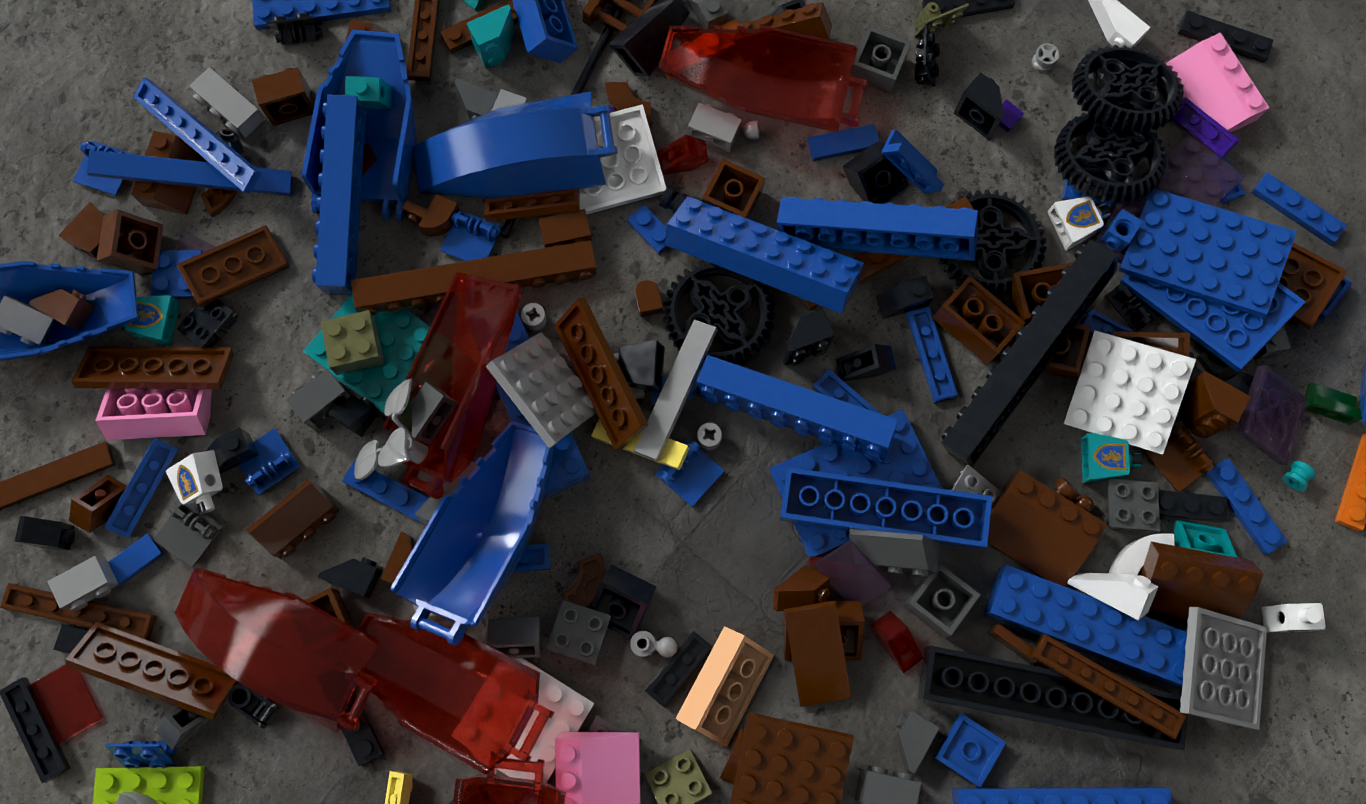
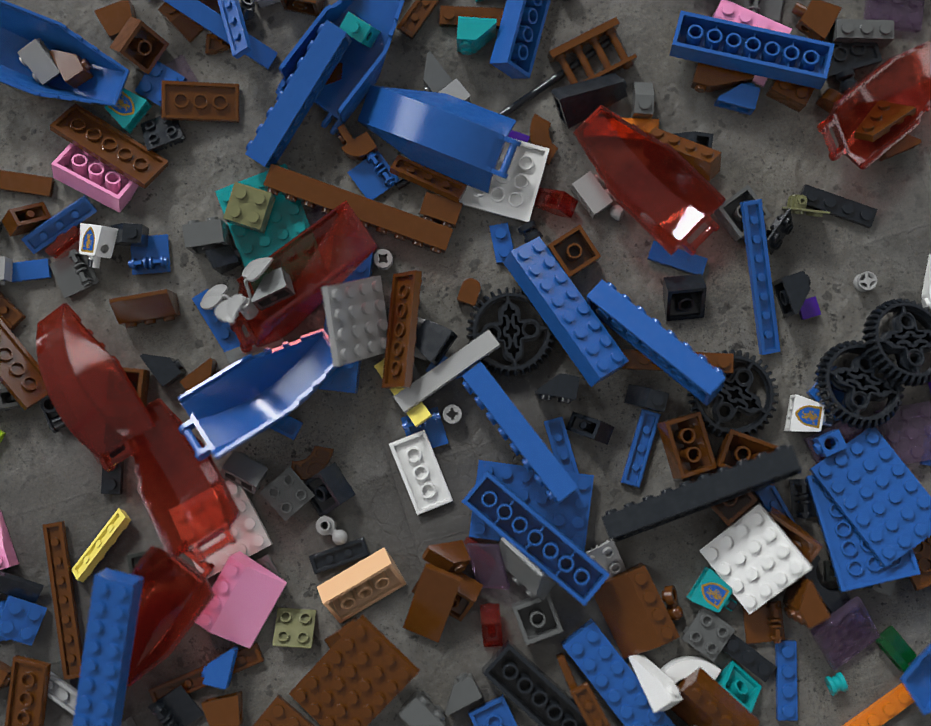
camera: 35 degrees right, 10 degrees up
(157, 503) = (63, 242): none -> clear red plate
(713, 519) = (420, 472): none -> white tile
(911, 163) = (713, 305): blue panel -> none
(940, 107) = (760, 276): none -> blue plate

